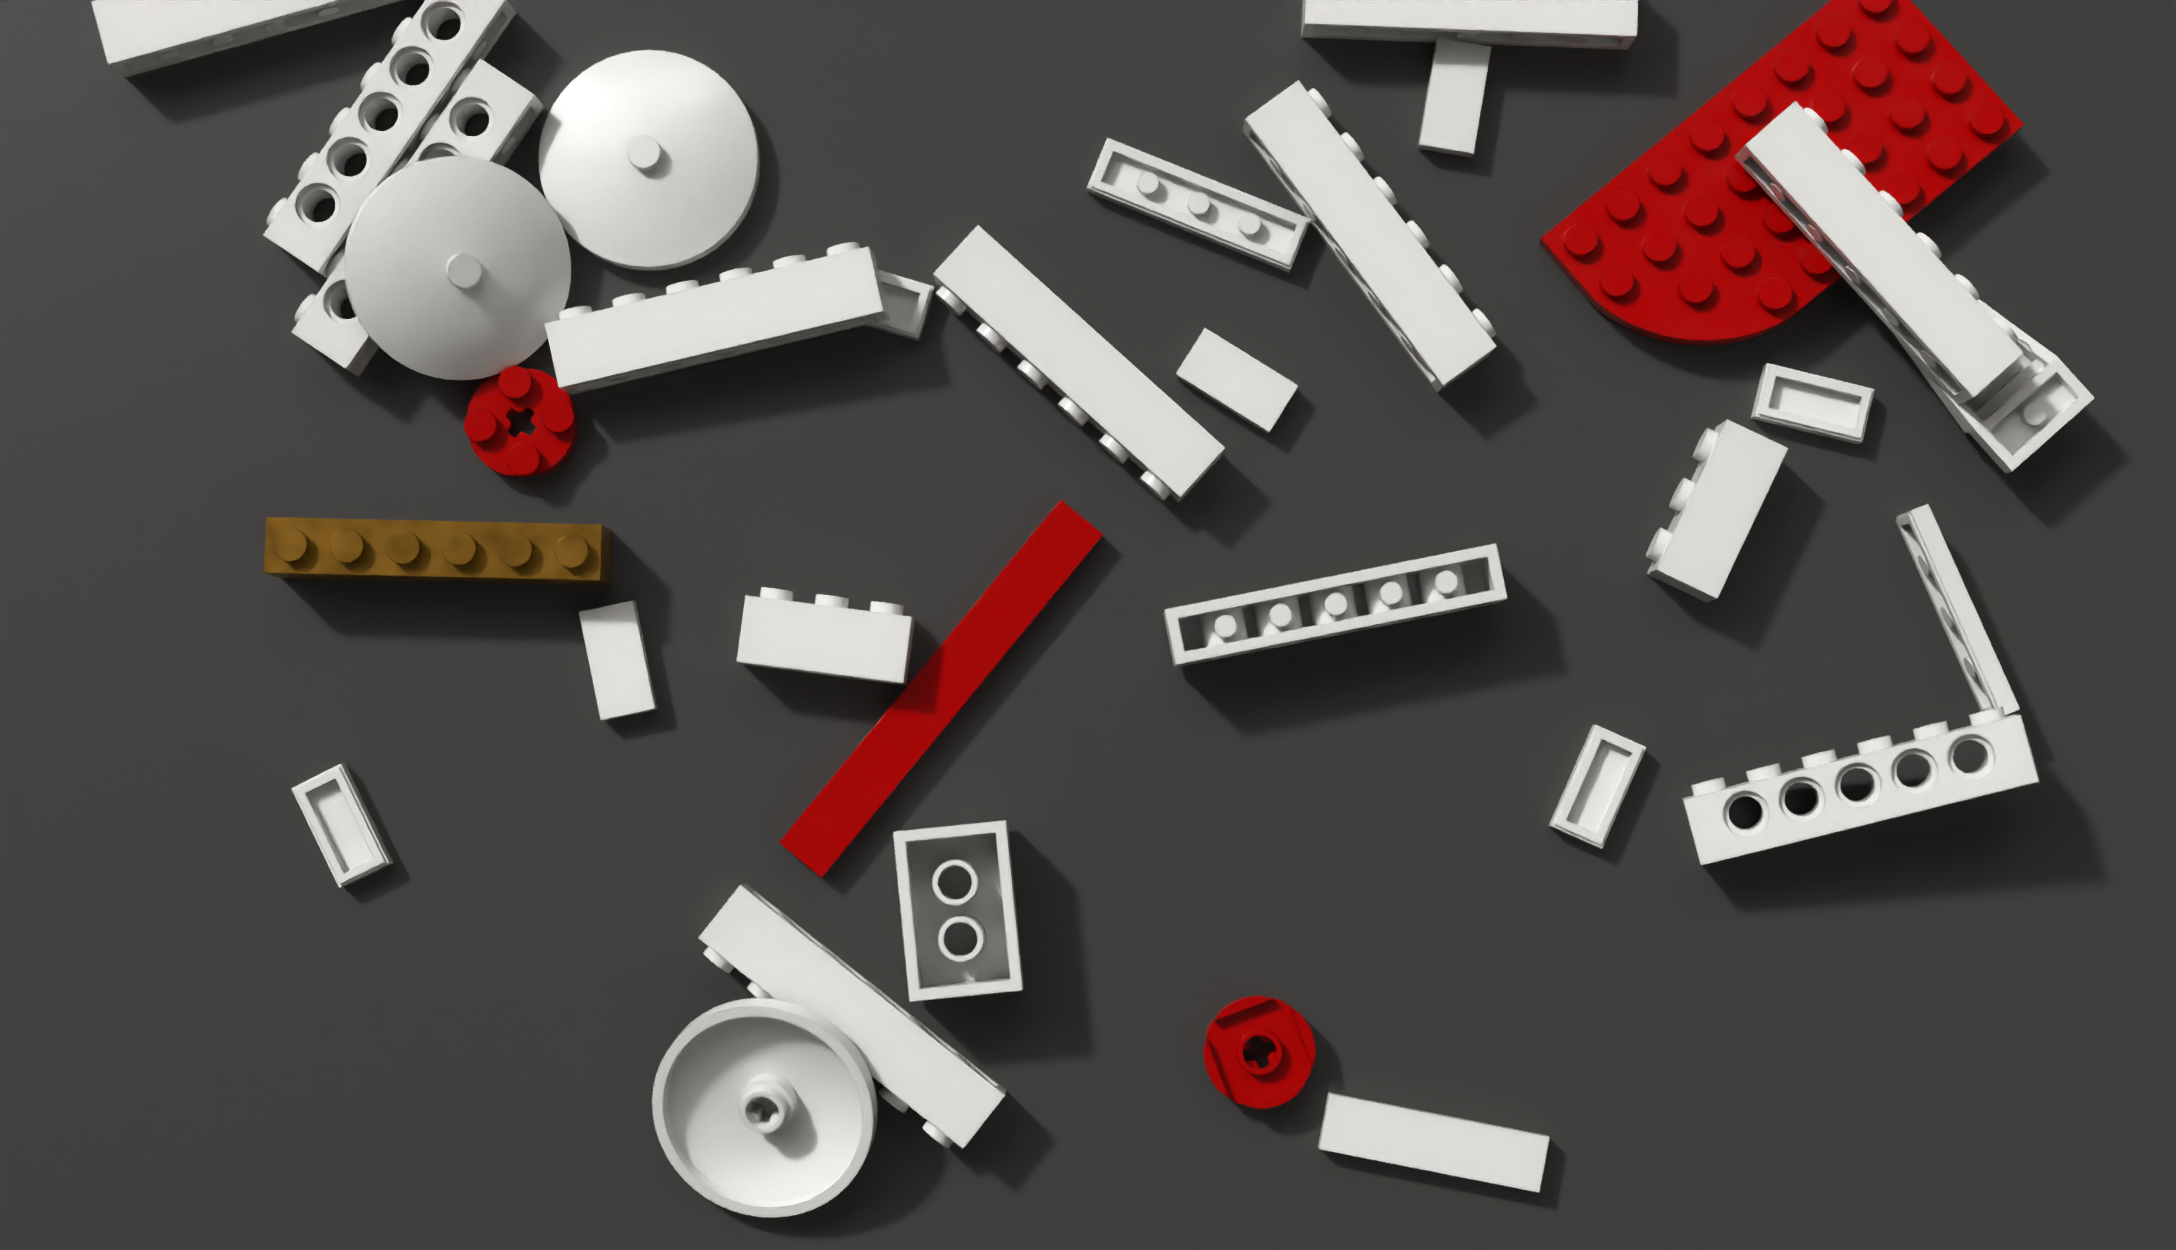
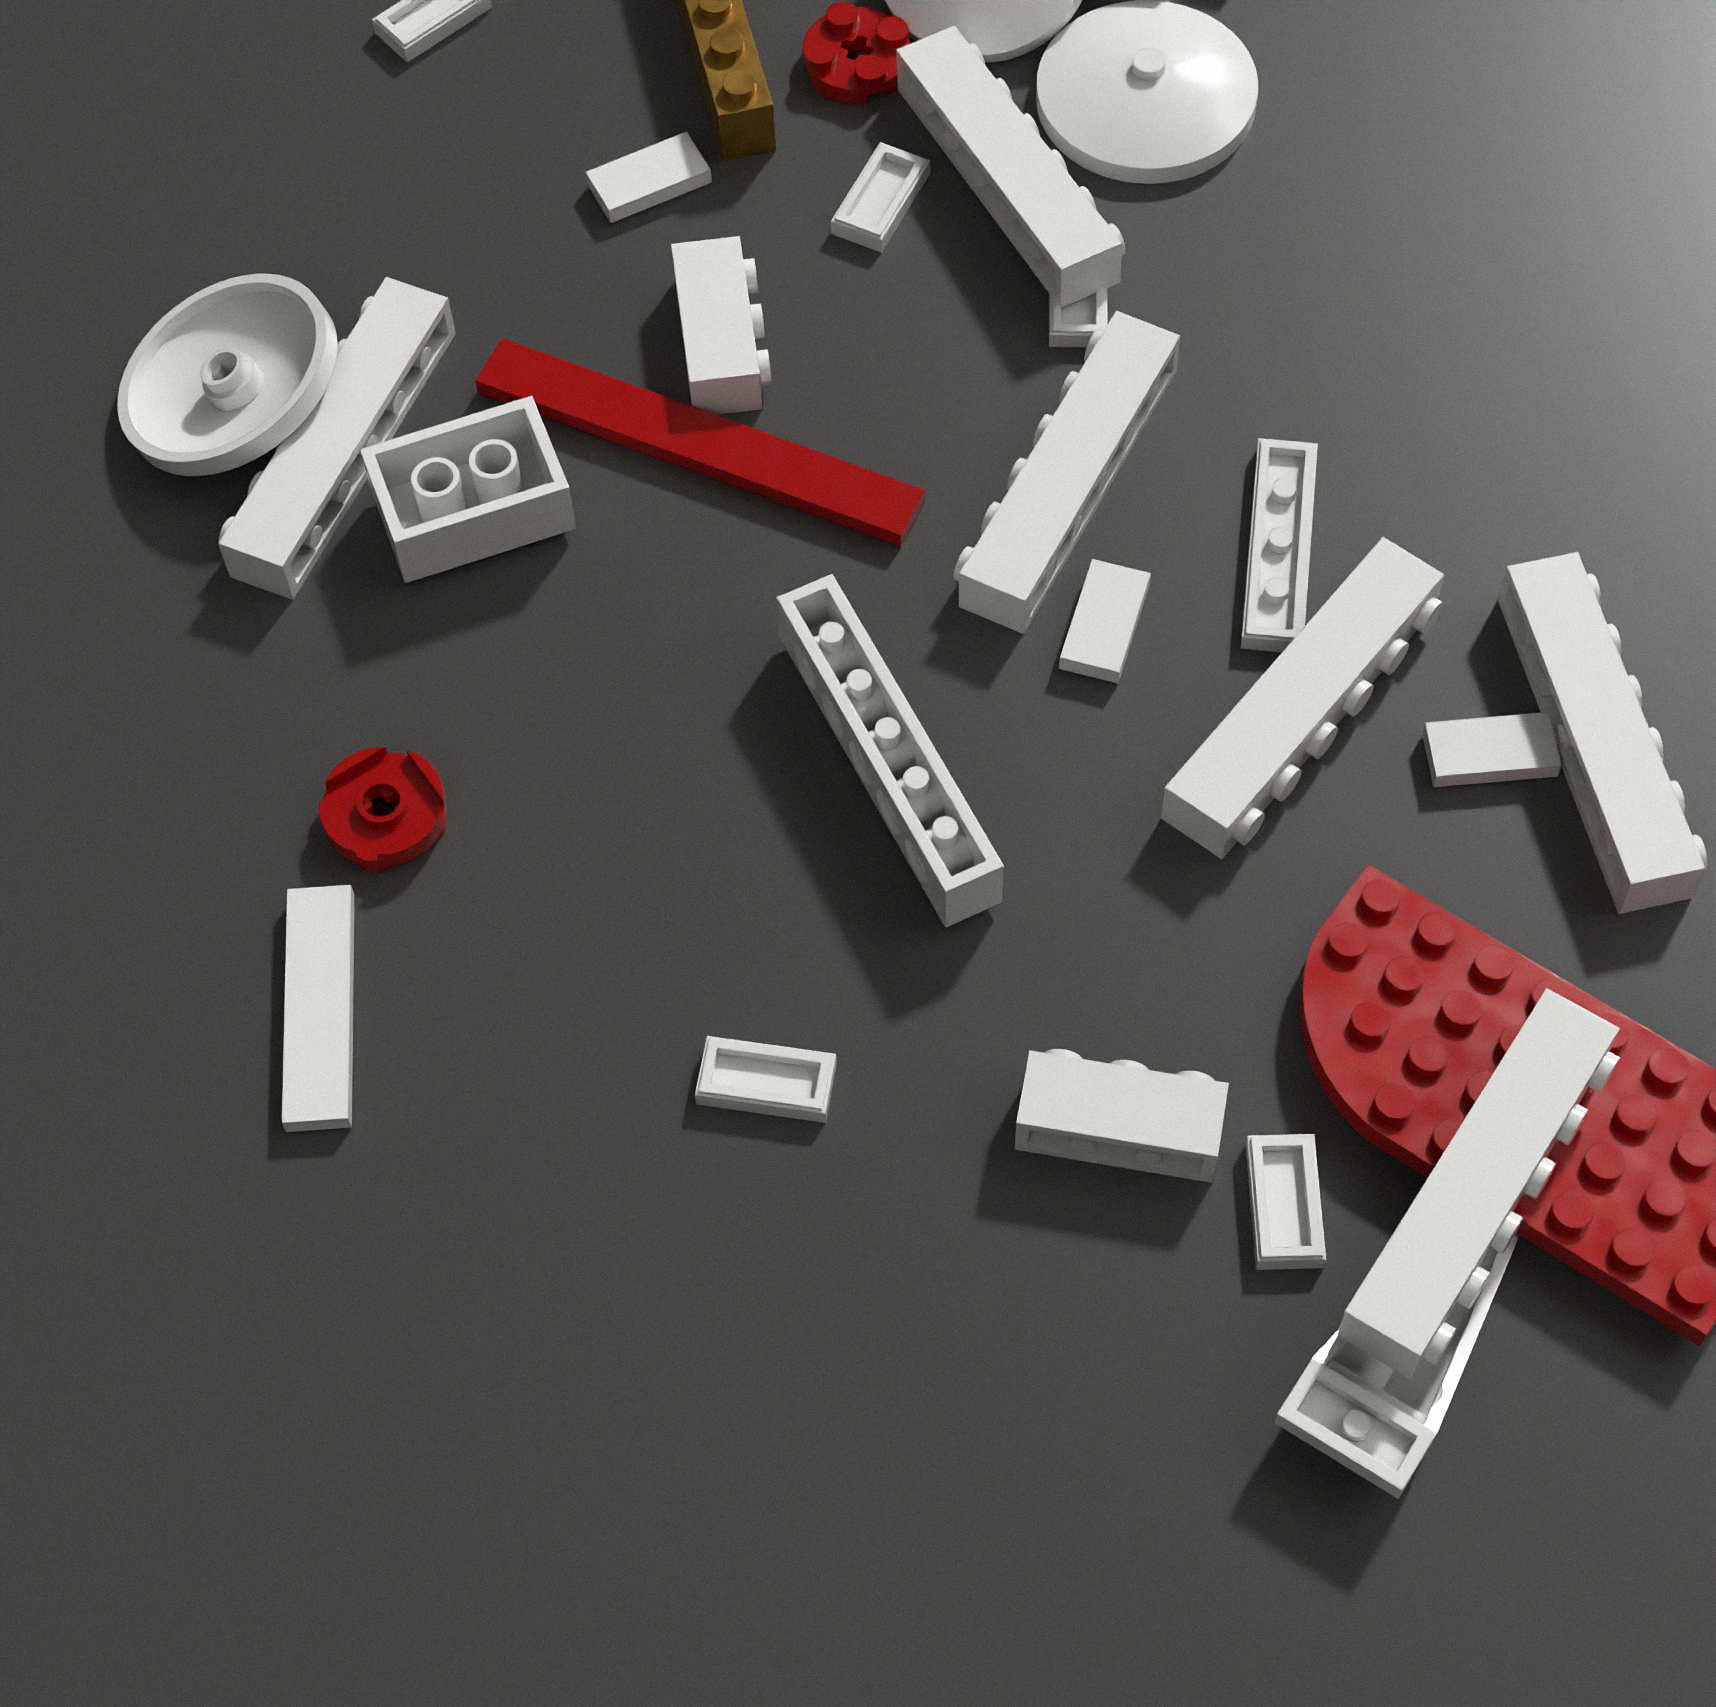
camera: 75 degrees right, 25 degrees down
(704, 447) = (880, 197): none -> white tile
(1956, 610) = (1086, 1414): white tile -> none
(2004, 766) = (911, 1478): white brick -> none

